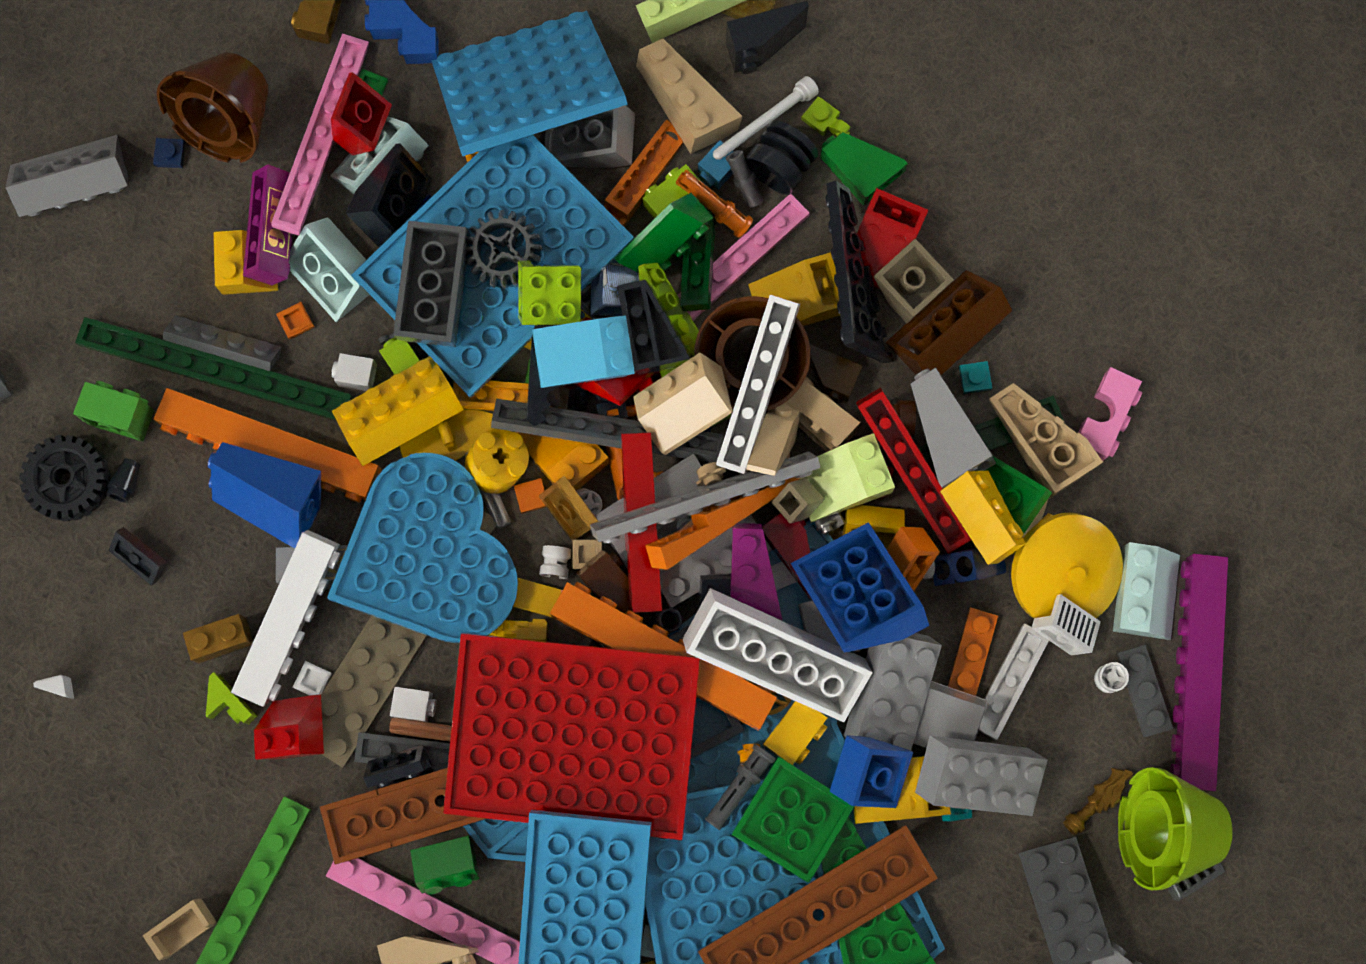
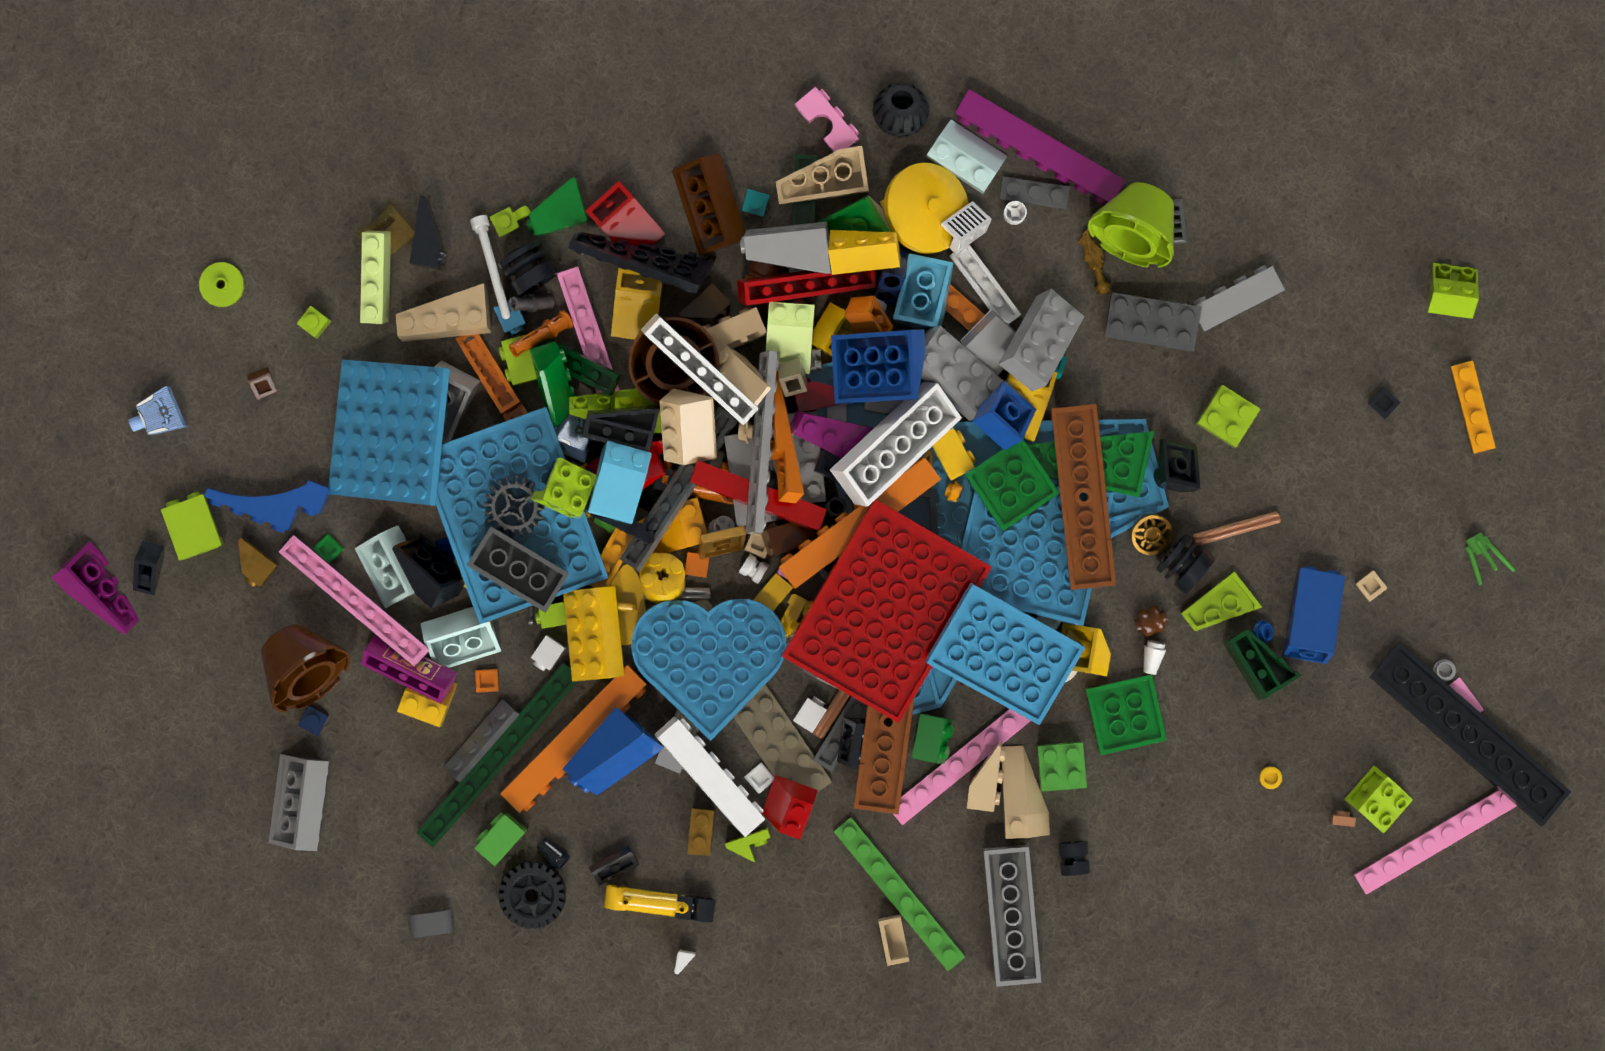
camera: 65 degrees left, 10 degrees up
(119, 654) = (659, 903): none -> yellow piece
(359, 116) = (357, 566): red slope -> none
(748, 774) = (968, 500): dark grey pin -> none
(912, 280) = (665, 216): dark tan slope -> none
(969, 611) = (924, 293): none -> medium azure slope
(1163, 491) = (900, 110): none -> black wheel

